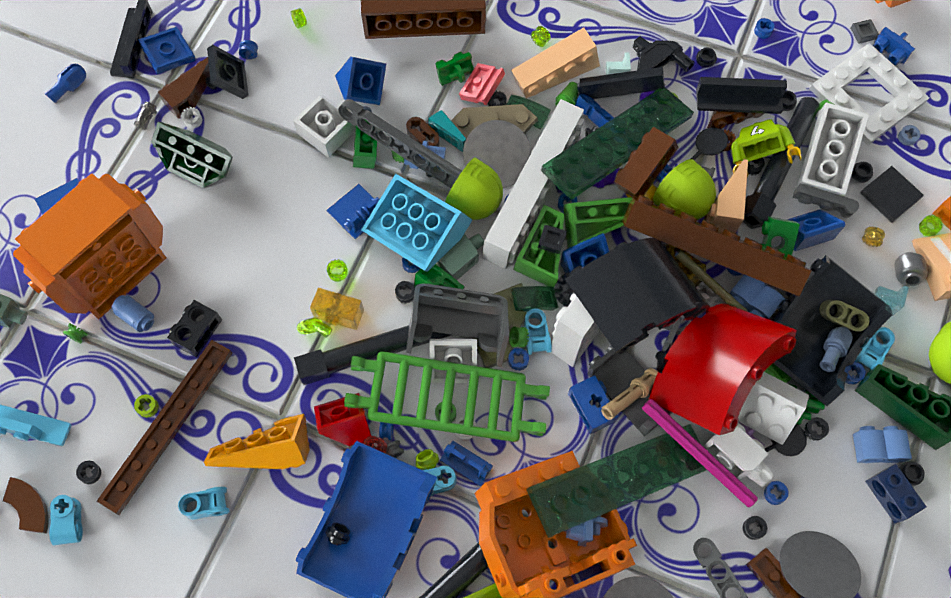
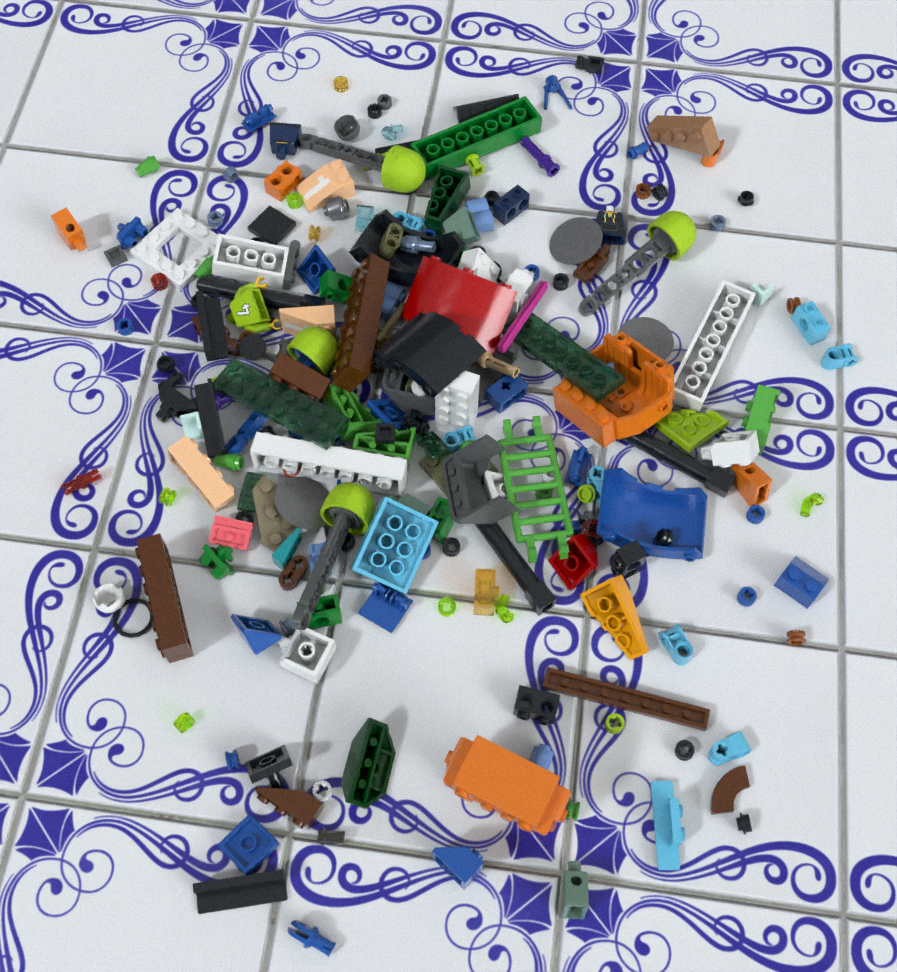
camera: 105 degrees left, 5 degrees down
(317, 475) = (628, 560): none -> black brick
(440, 190) = (349, 543): none -> black plate
(824, 61) = (160, 285): none -> clear red bush
(857, 411) = (464, 225): none -> sand green torso

